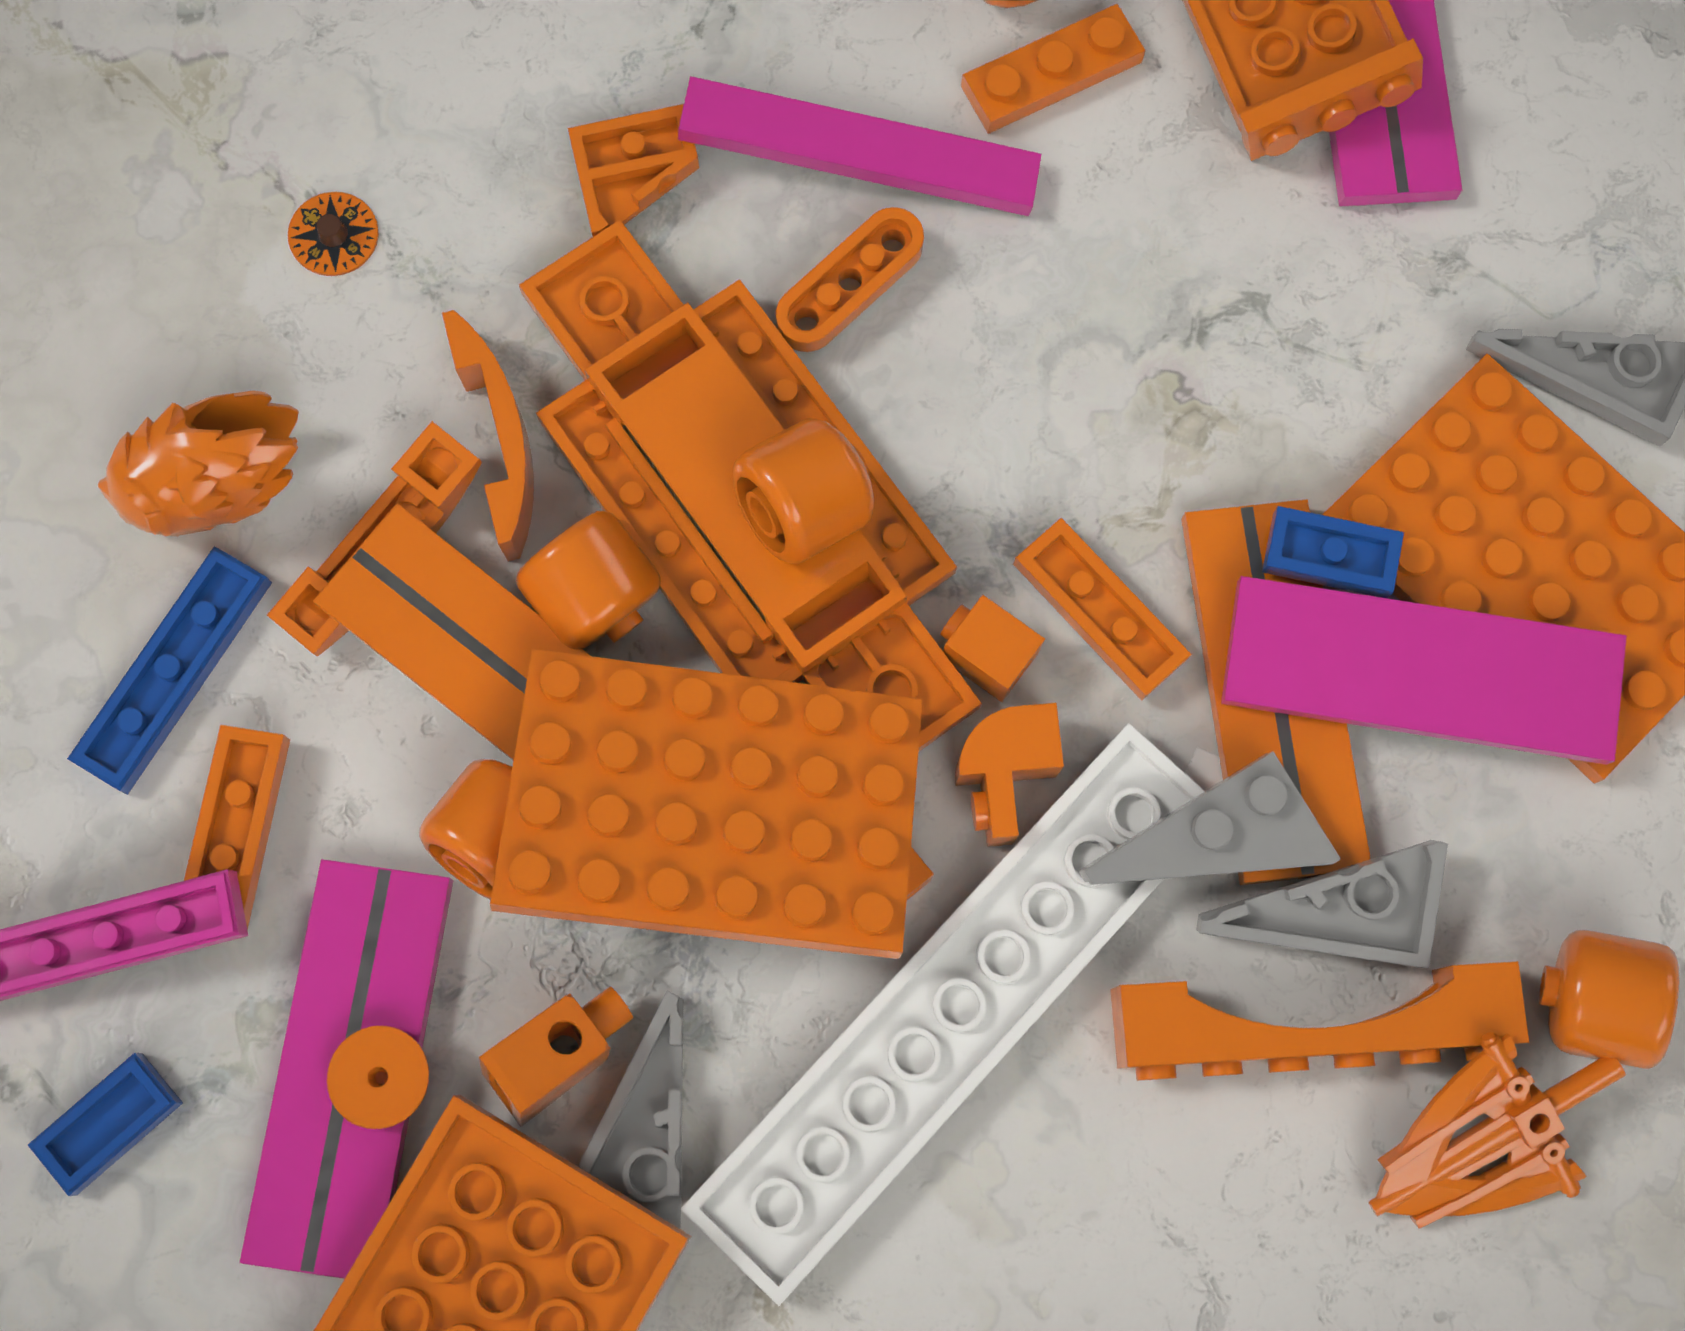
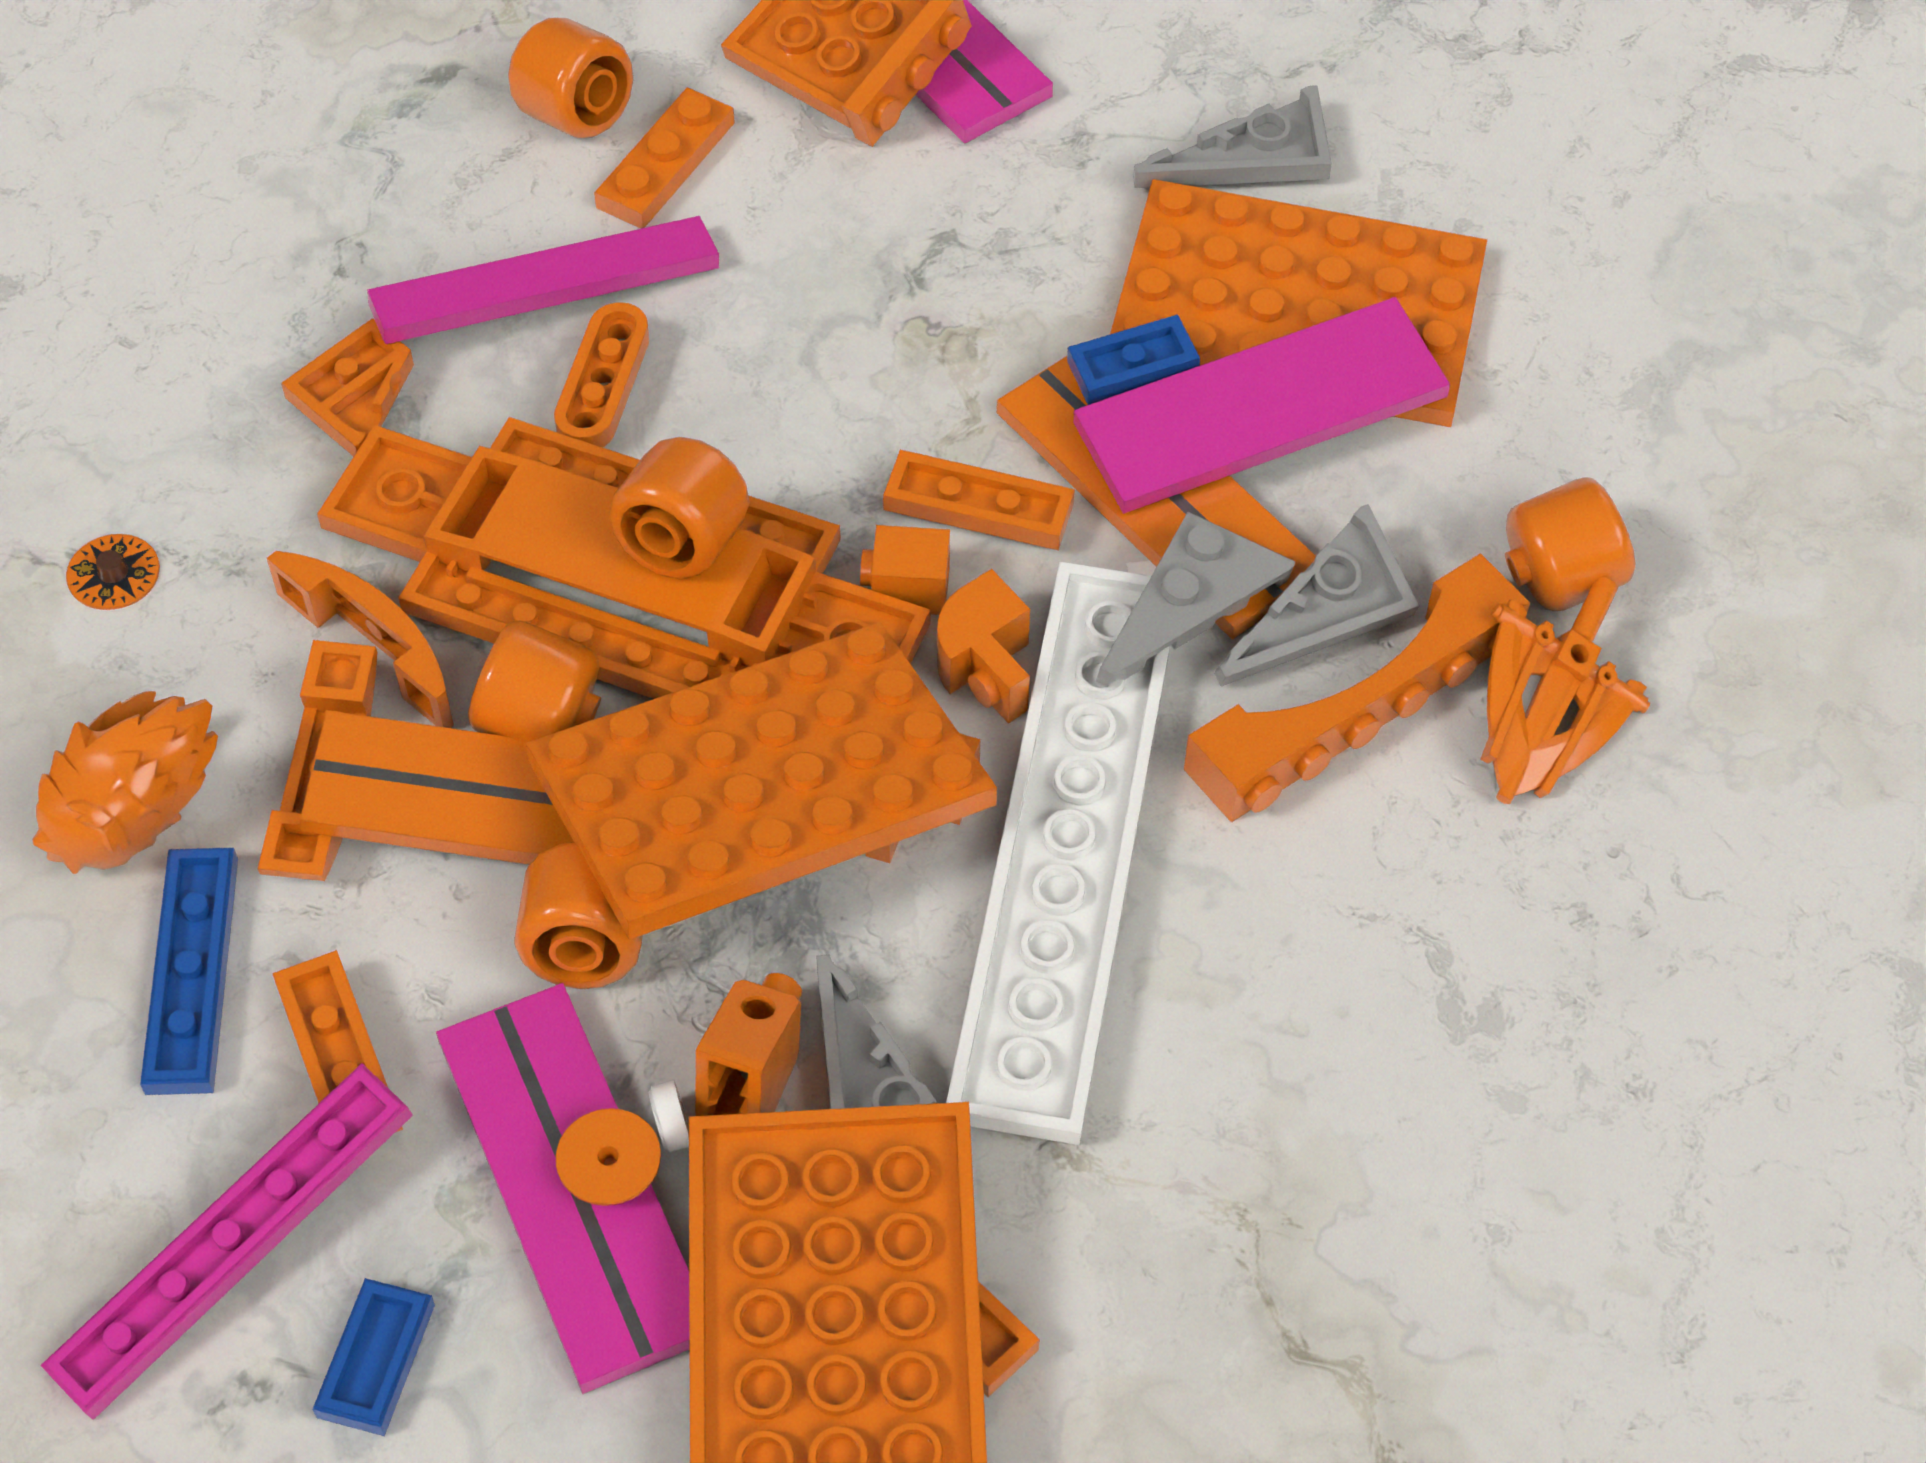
camera: 30 degrees left, 20 degrees down
(456, 1063) = (669, 1116): none -> white tile

